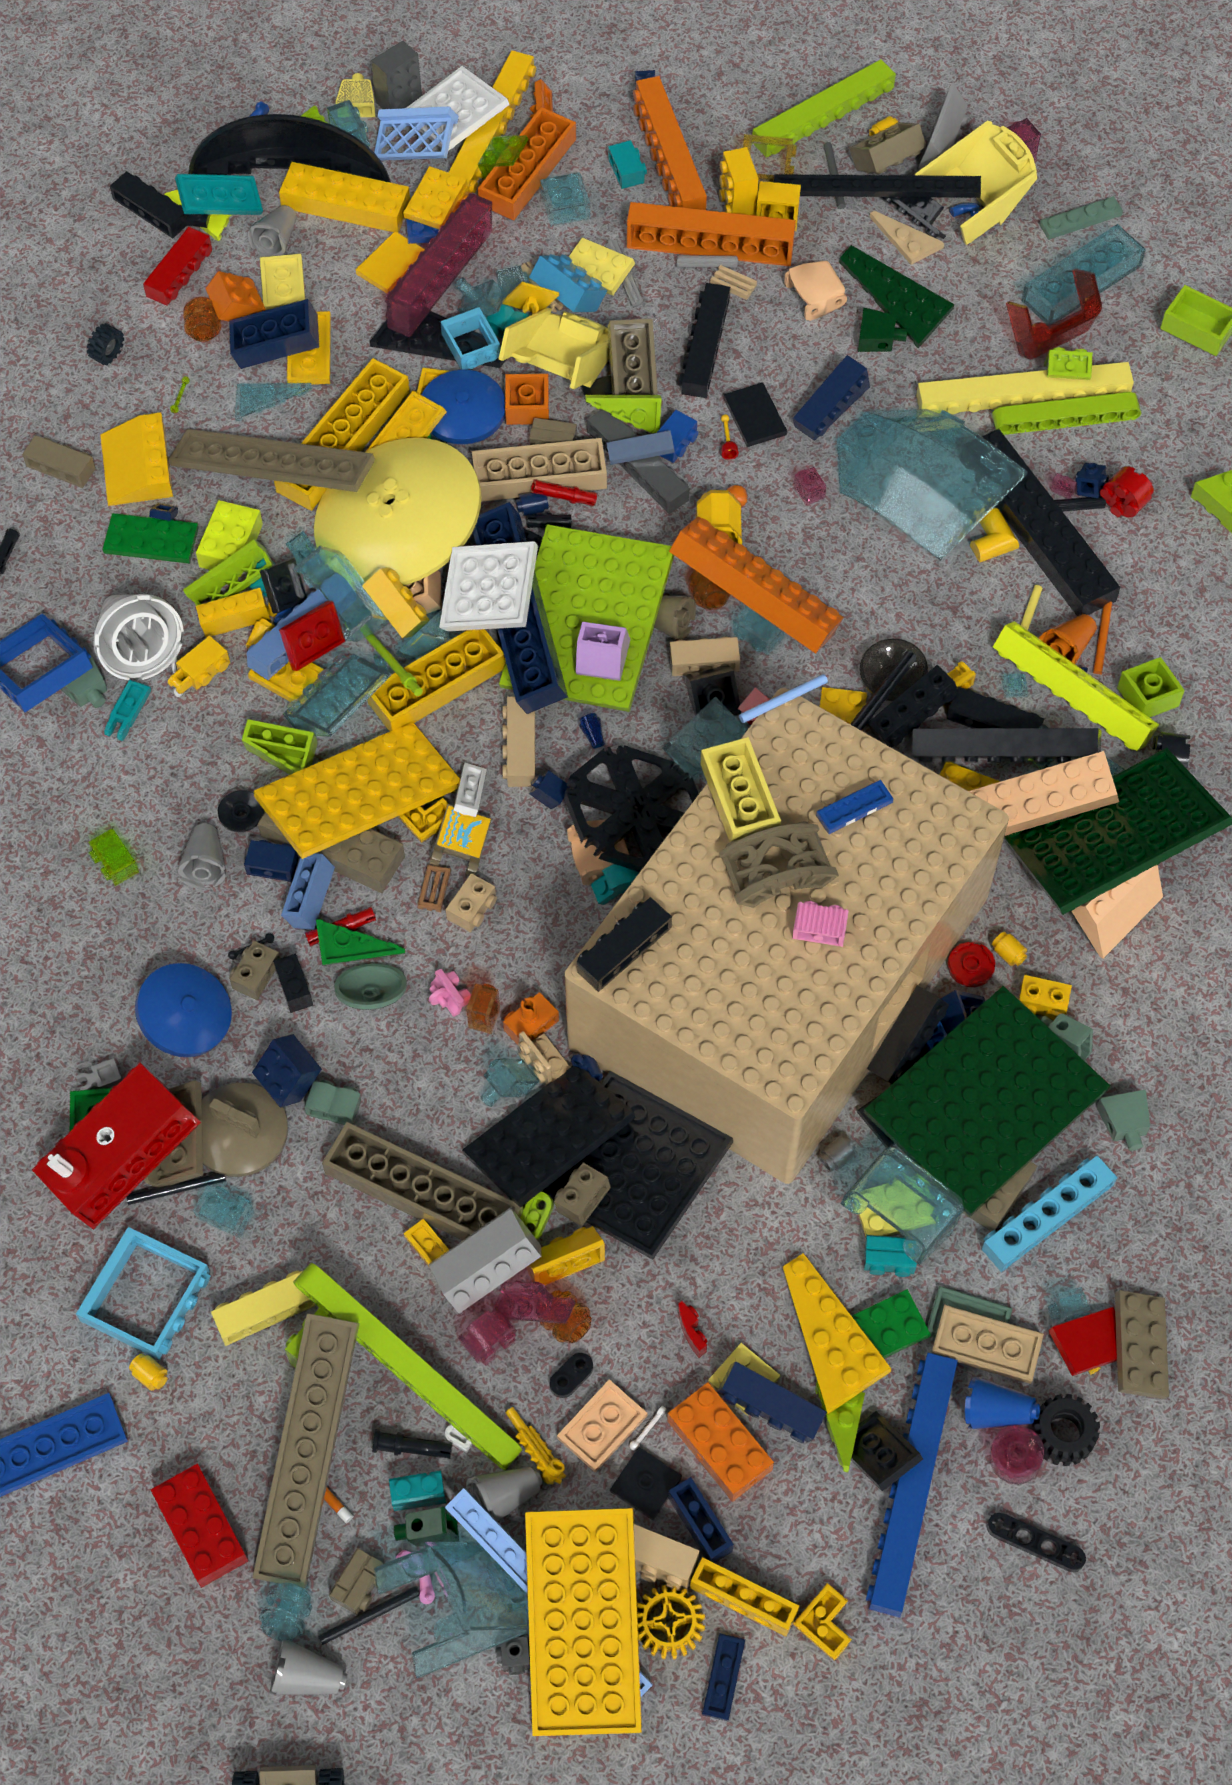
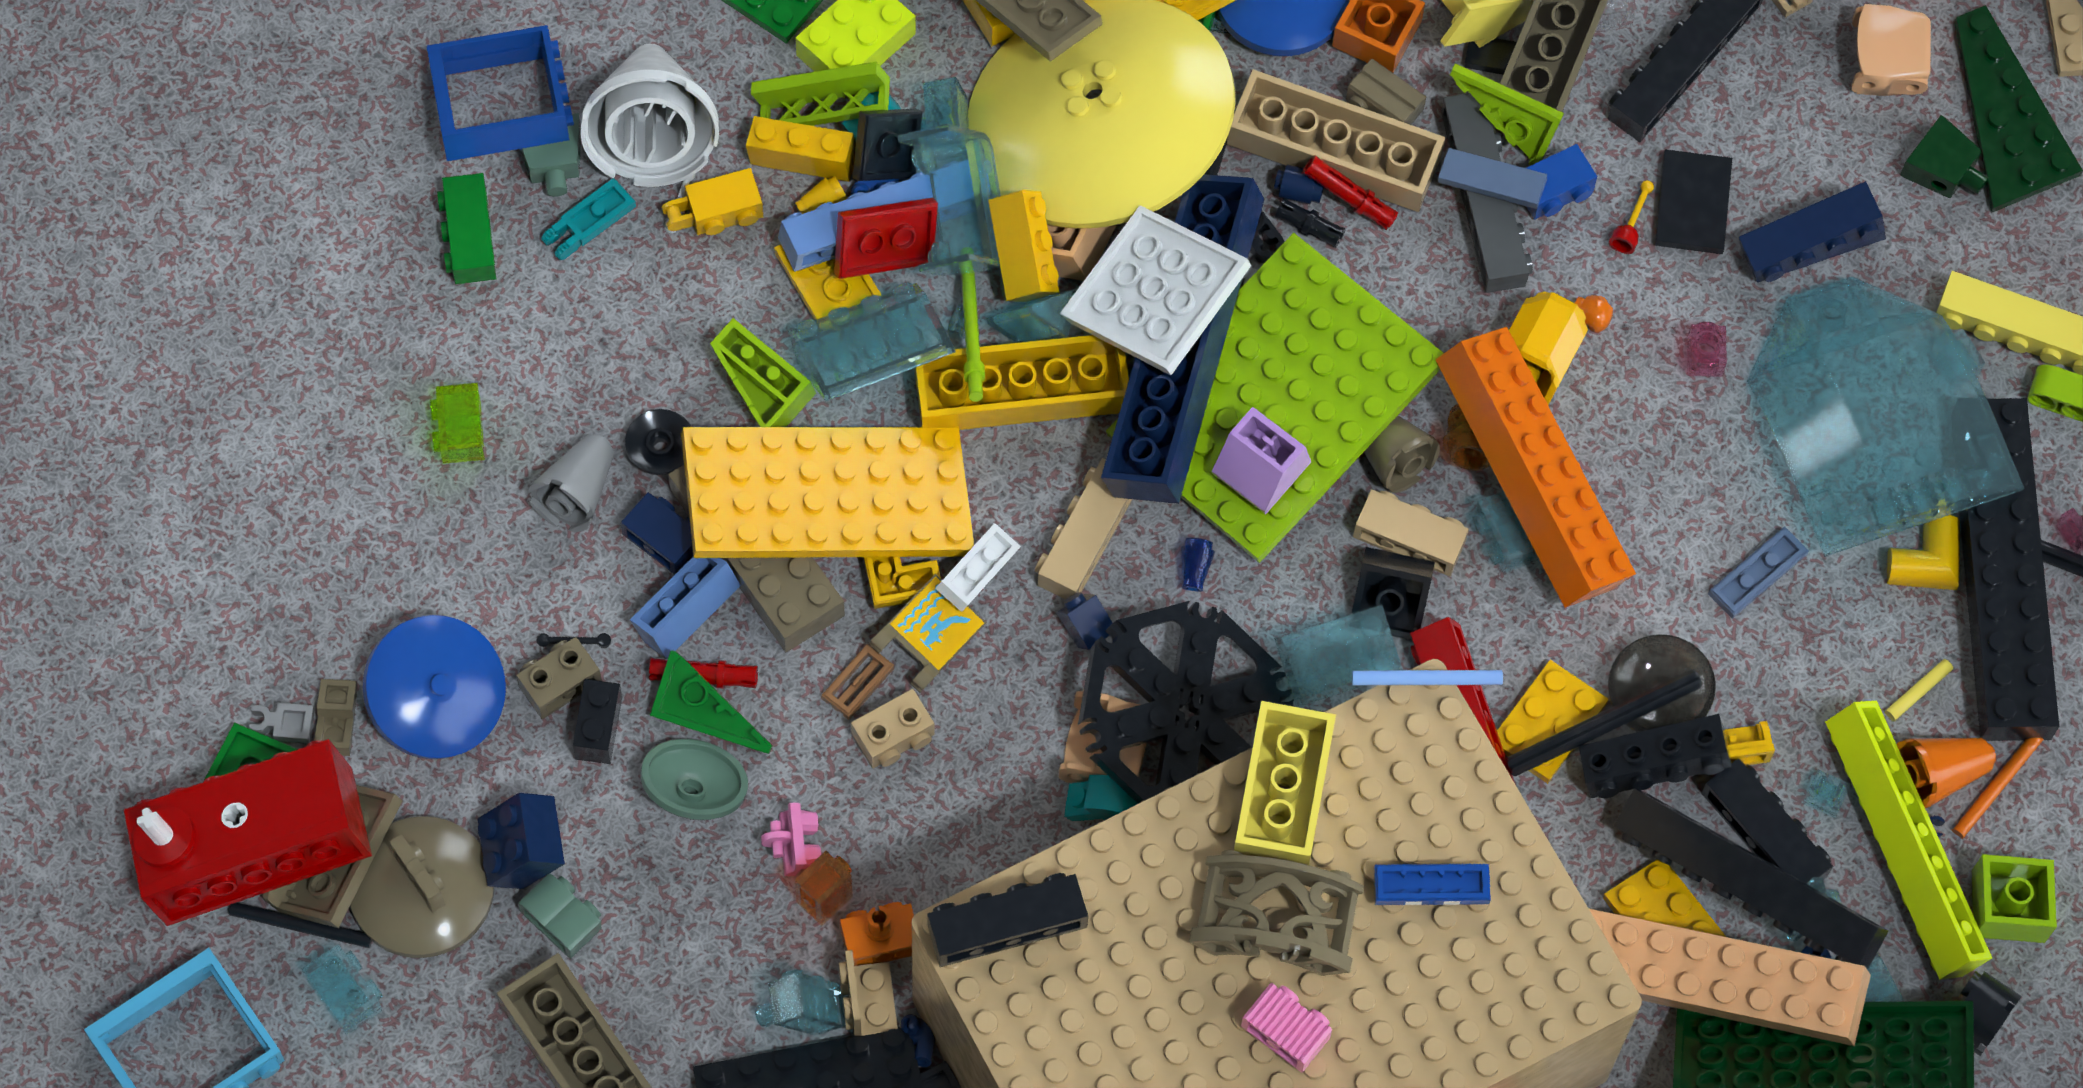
camera: 25 degrees right, 5 degrees up
(56, 747) = (467, 229): none -> green brick
(127, 1052) = (336, 713): none -> dark tan slope
(907, 588) = (1758, 572): none -> sand blue tile

